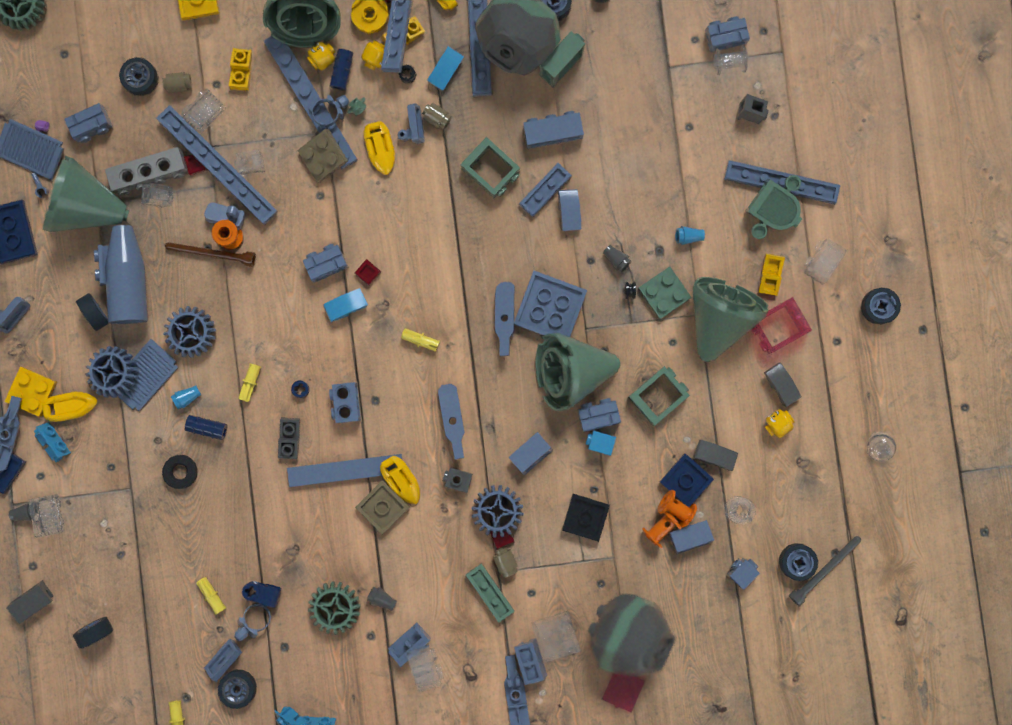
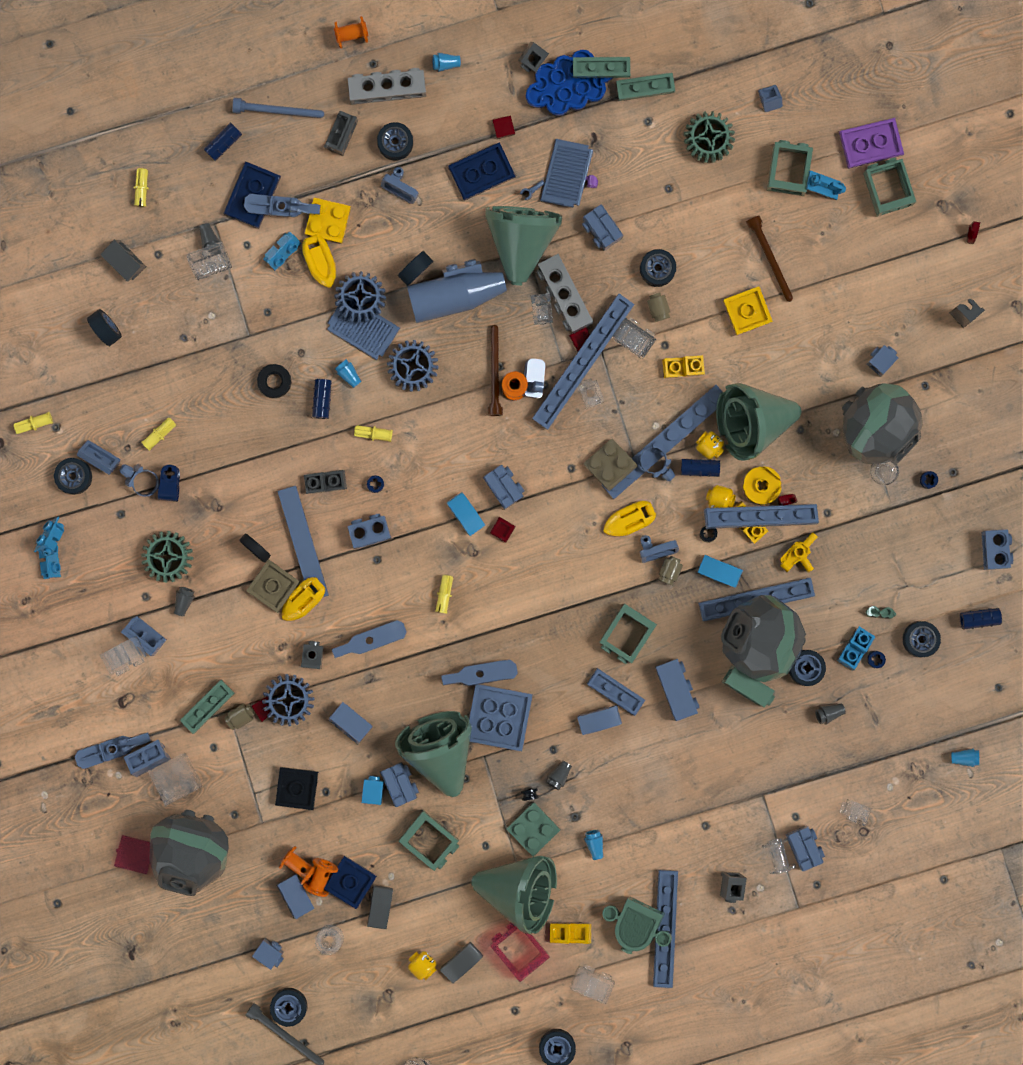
camera: 75 degrees right, 0 degrees up
(340, 518) = (255, 547): none -> black tyre
(357, 106) = (666, 490): sand green plate -> none

